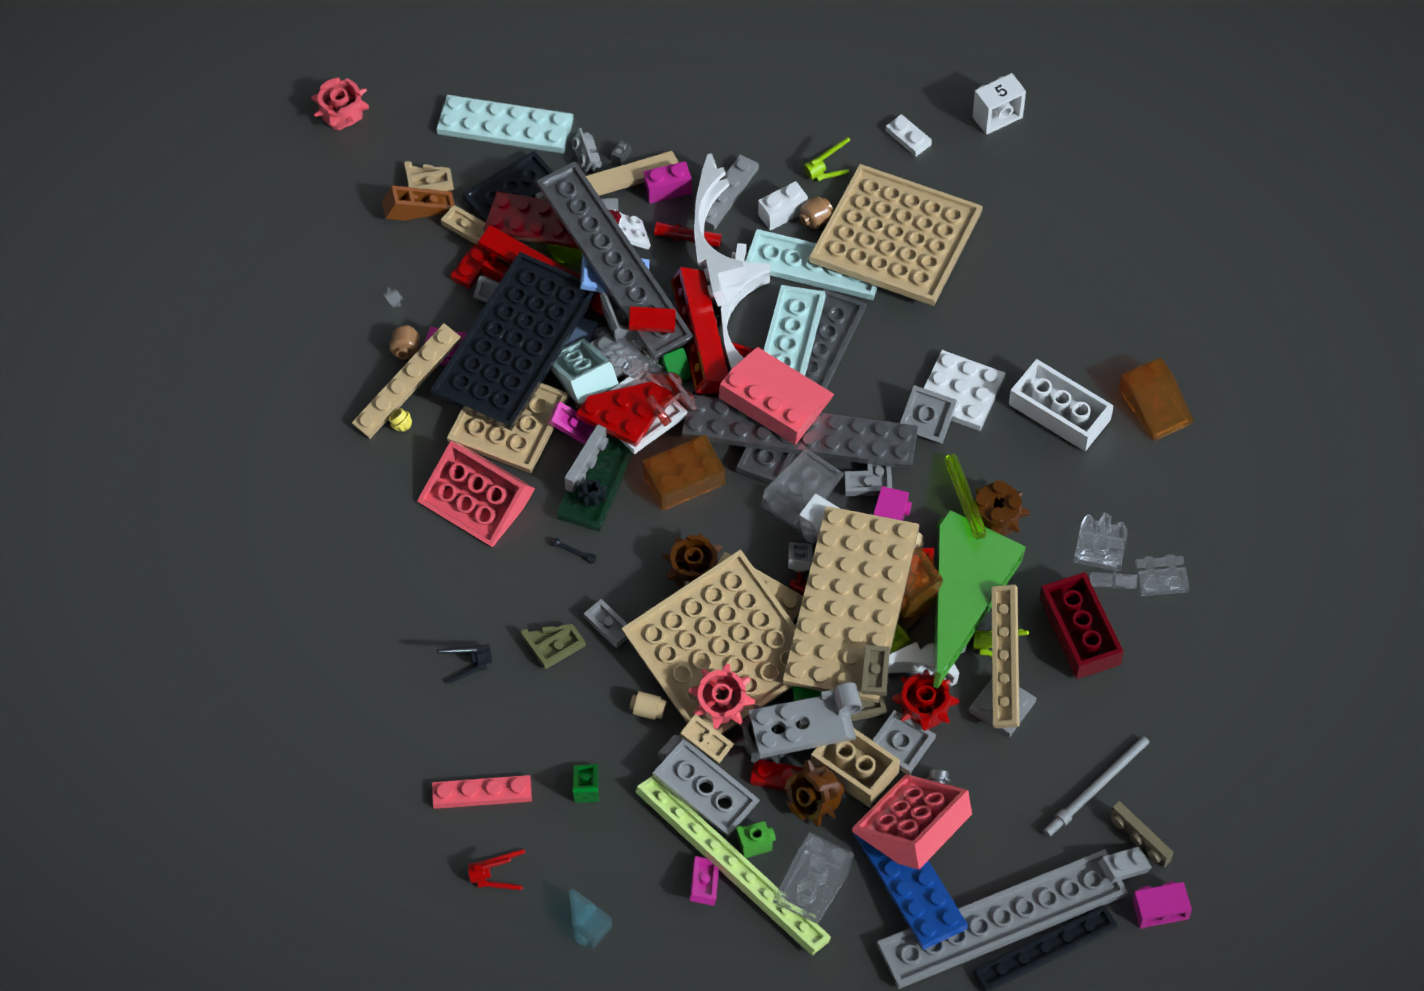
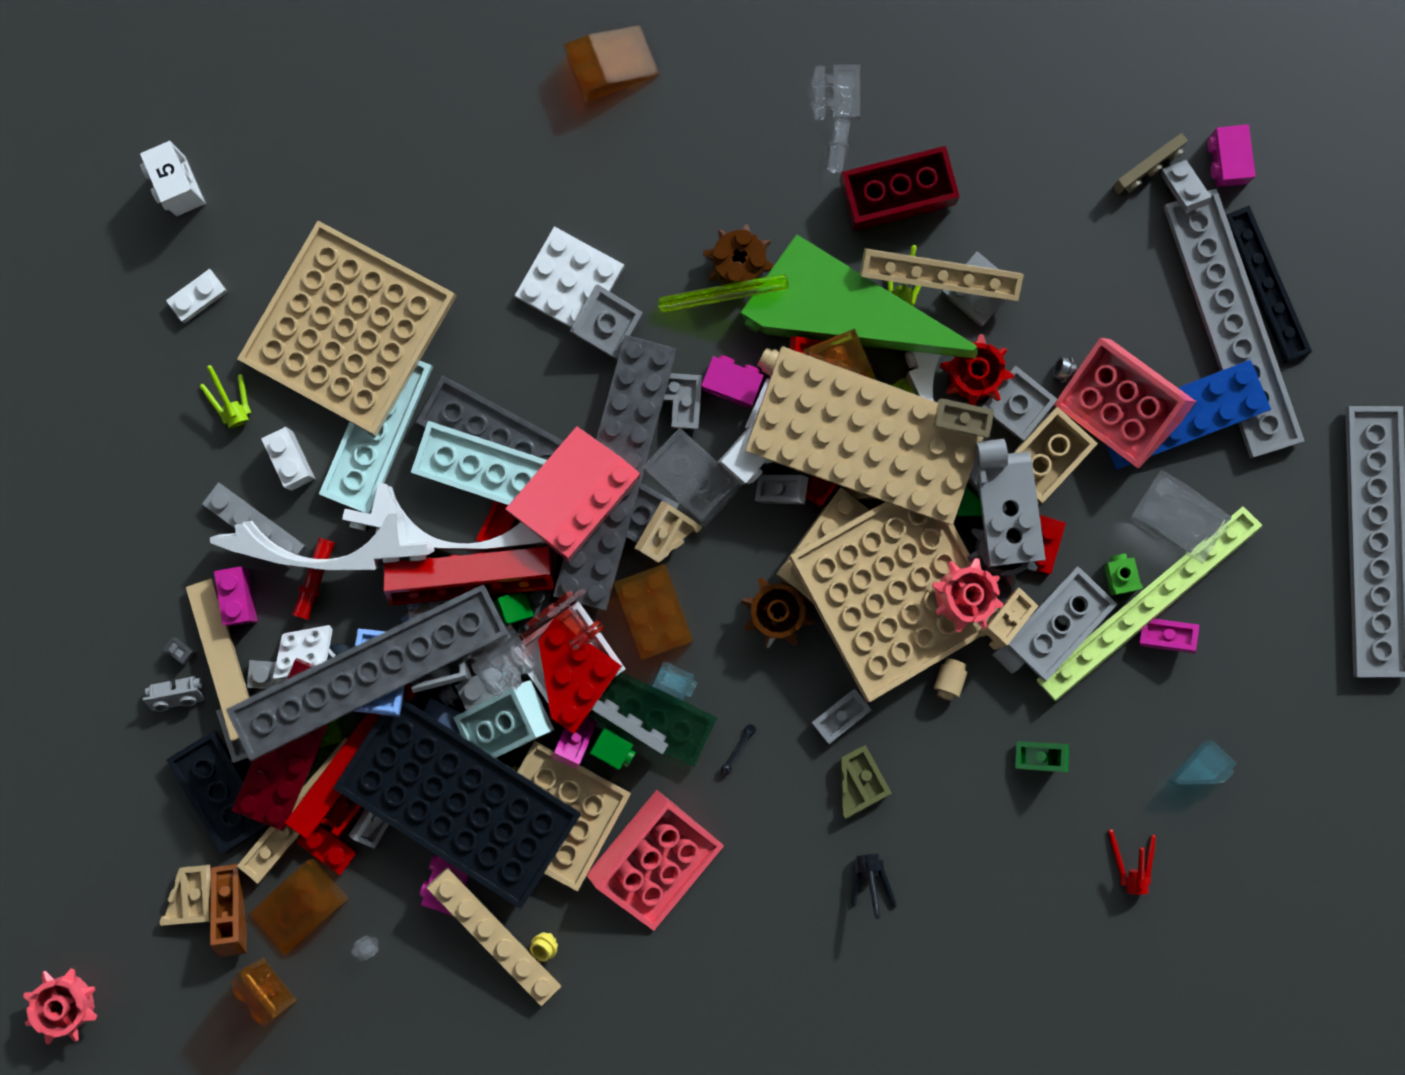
camera: 85 degrees left, 25 degrees up
(357, 228) = (262, 991): none -> clear orange slope
(404, 342) = (434, 936): medium nougat head -> none
(426, 251) = (299, 906): none -> clear orange slope
(482, 792) = (1037, 873): coral plate -> none
(505, 124) = (114, 794): light aqua plate -> none
(565, 447) = (614, 749): none -> green brick
(592, 492) = (686, 721): black gear -> none
(627, 488) = (675, 681): none -> clear light blue slope
(652, 319) = (461, 631): red tile -> none
(752, 471) = (665, 532): none -> tan wing
(813, 792) = (1083, 505): reddish brown brick -> none
(816, 212) = (303, 420): medium nougat head -> none
(1060, 405) = (610, 168): white brick -> none
(1064, 816) = (1119, 242): light grey bar -> none
(1101, 543) = (792, 151): clear plate -> none

